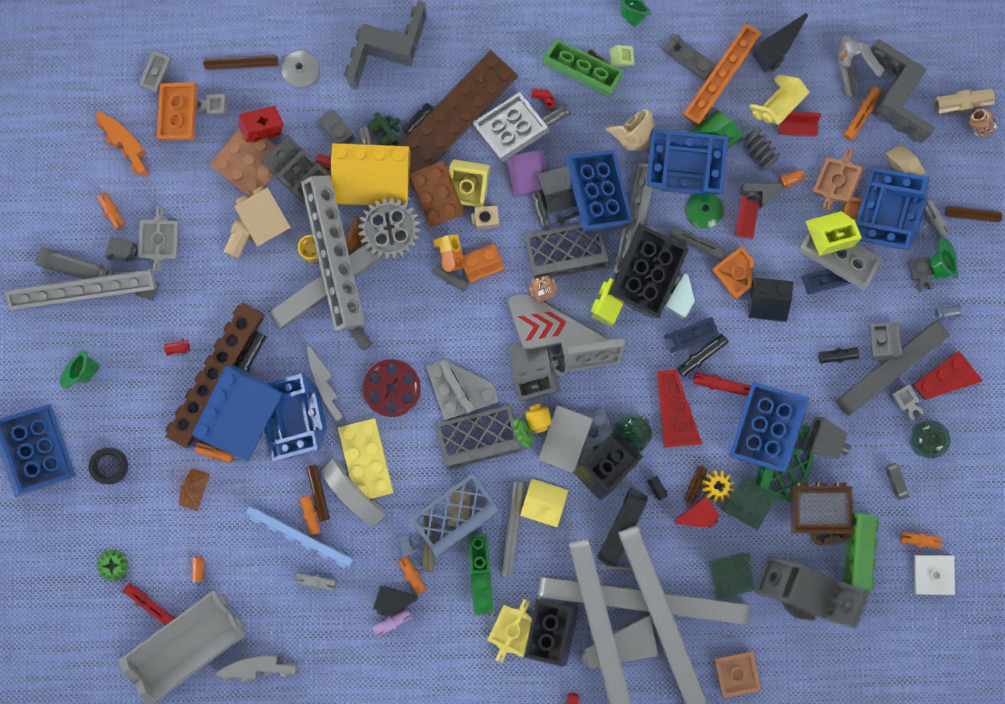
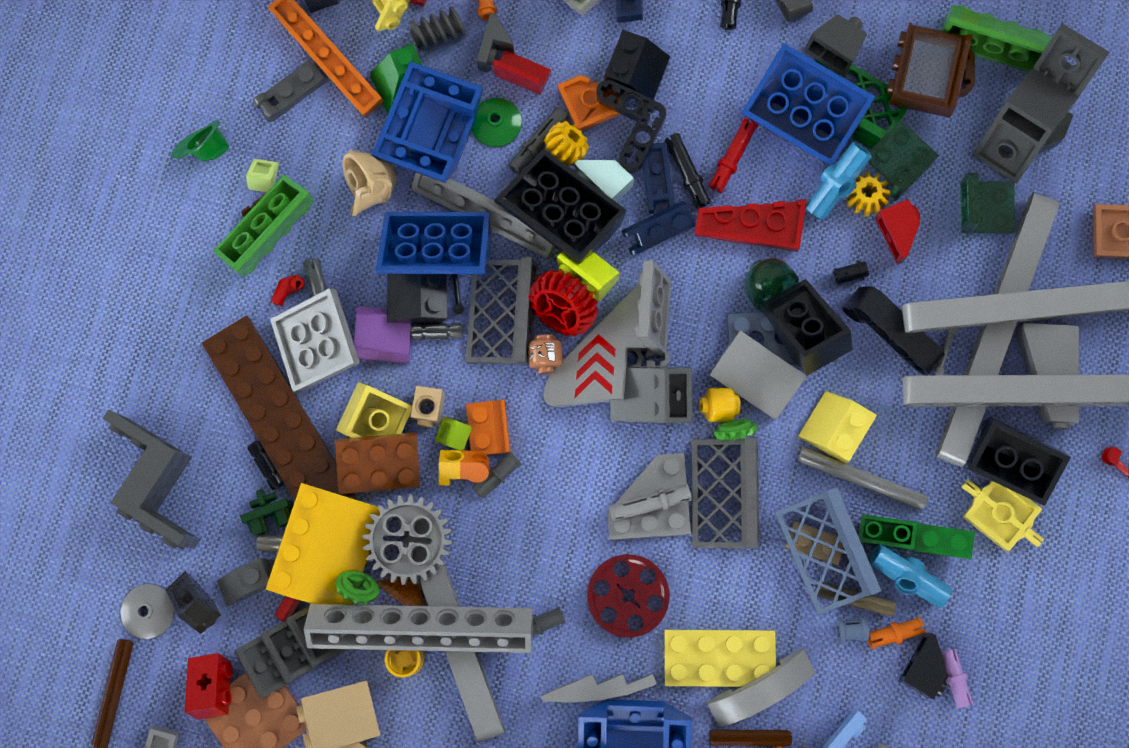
camera: 65 degrees left, 5 degrees down
(312, 97) = (192, 603): none -> clear smoke slope
(353, 199) = (350, 580): none -> bright green gear
(452, 575) = (910, 576): none -> dark azure piece
(471, 240) = (453, 433): none -> lime slope
(580, 291) = (563, 303): none -> red gear
(655, 345) = (659, 227): none -> dark blue hinge
(695, 484) = (856, 223): reddish brown axle -> none
(698, 263) = (566, 143): none -> yellow gear
(720, 462) = (838, 180): none -> dark azure piece
(734, 310) = (640, 115): none -> black beam

